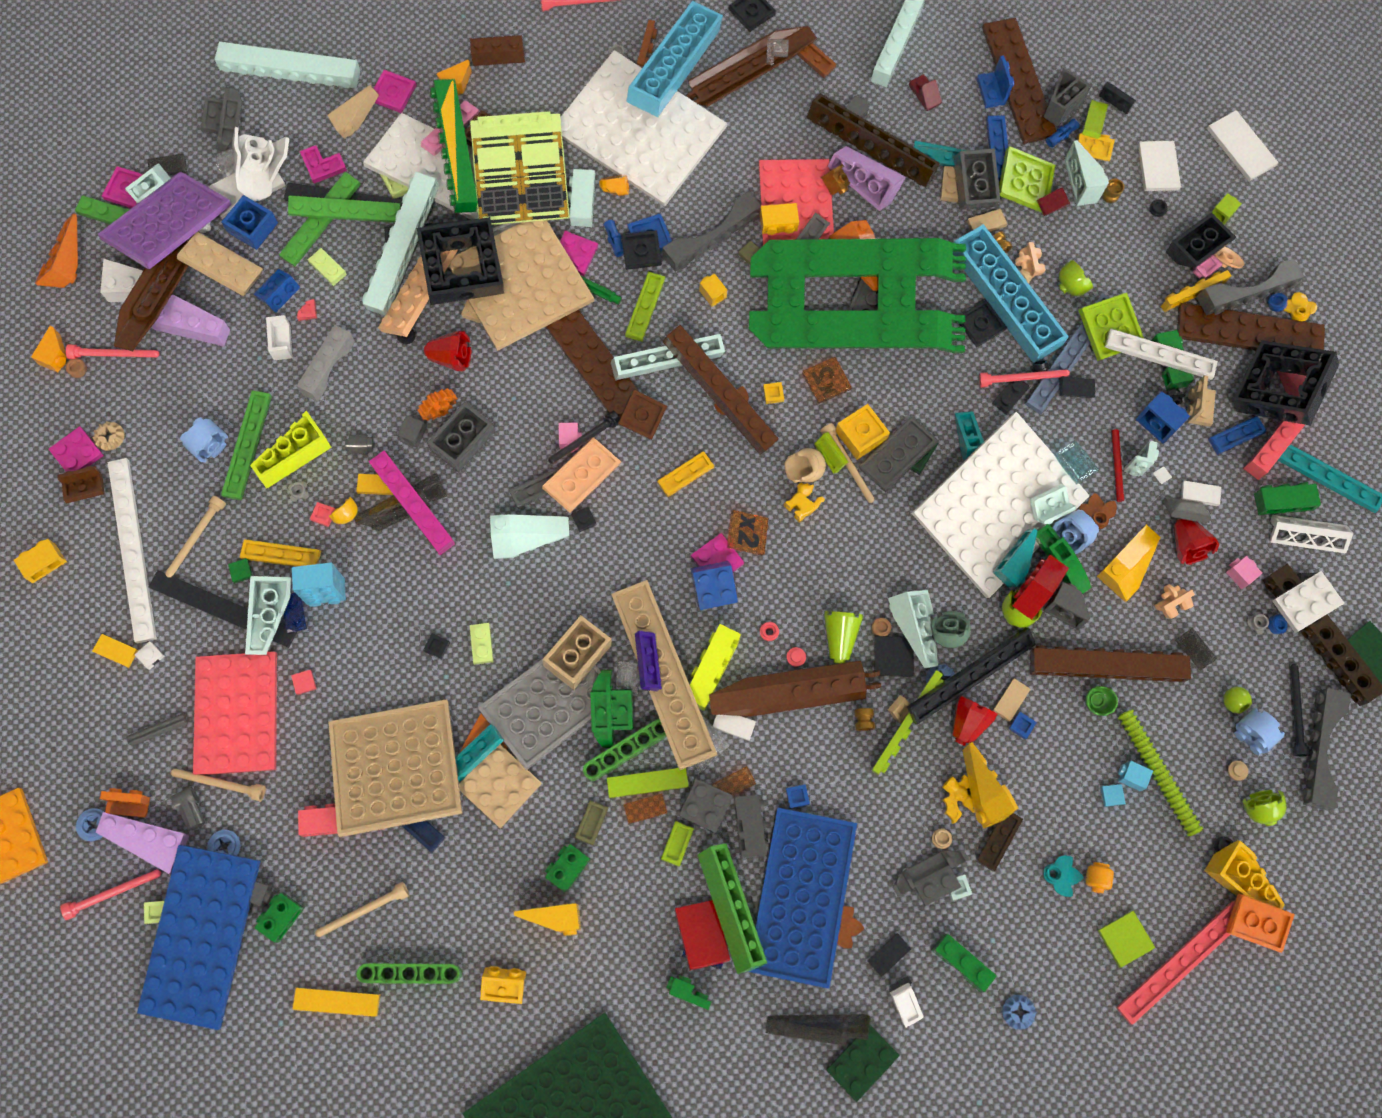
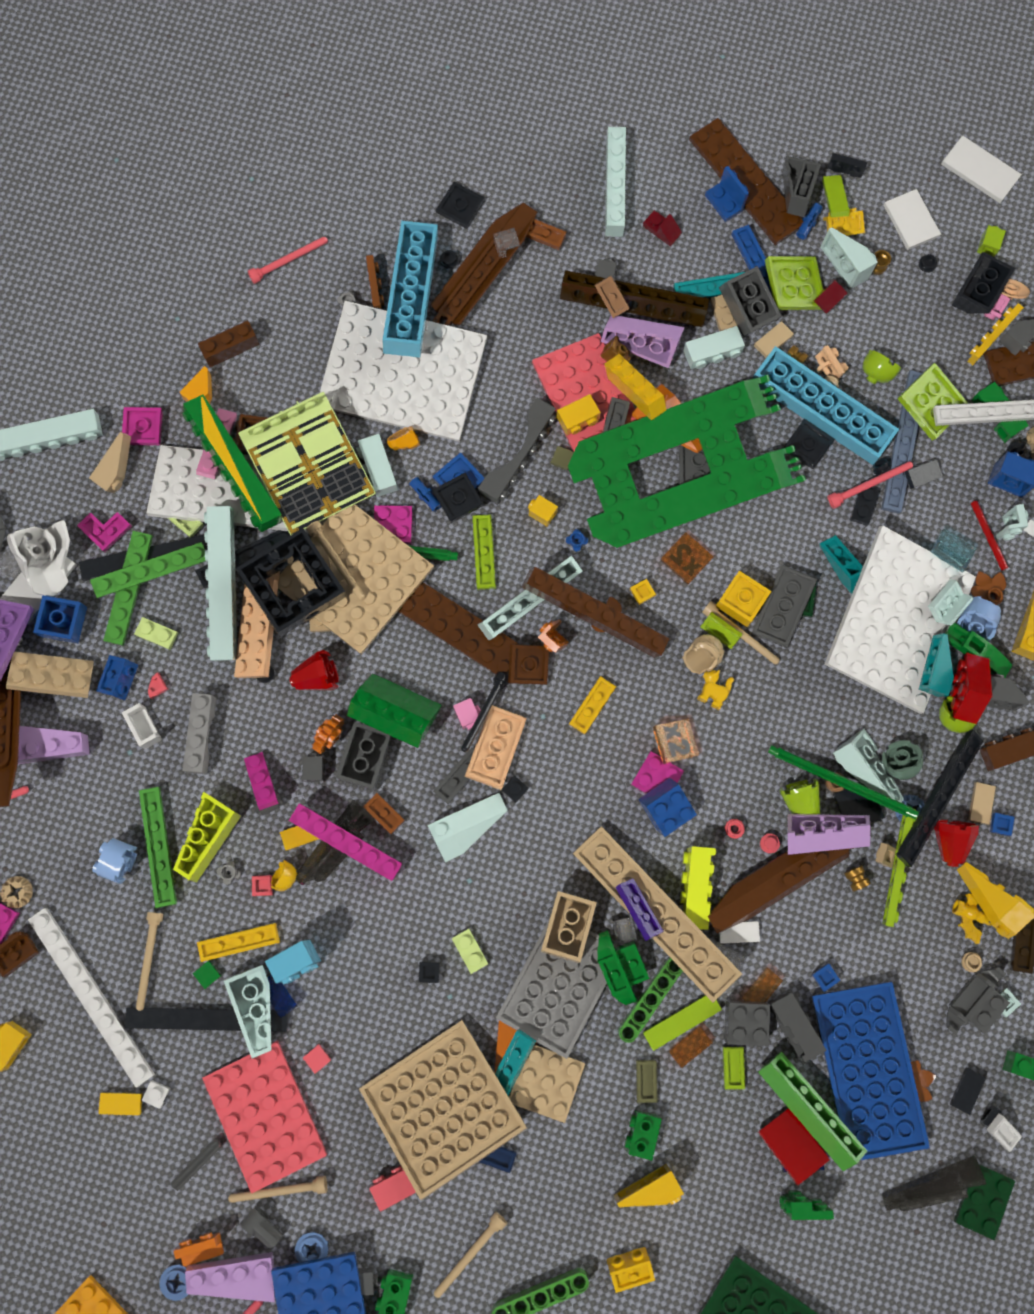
camera: 20 degrees left, 5 degrees up
(361, 423) = (261, 781): none -> dark pink plate
(457, 494) = (384, 813): none -> dark orange plate
(502, 228) = (316, 531): none -> tan piece
(503, 406) = (393, 710): none -> green slope
(671, 397) = (551, 638): none -> orange bracket
(722, 50) = (449, 259): none -> black plate
(733, 322) = (576, 535): none -> blue plate
(839, 210) = (635, 387): none -> yellow brick
(850, 661) = (827, 832): none -> lavender wedge
(851, 128) = (612, 296): none -> medium nougat plate
(928, 208) = (714, 348): none -> light aqua brick
(931, 669) = (843, 782): none -> green piece

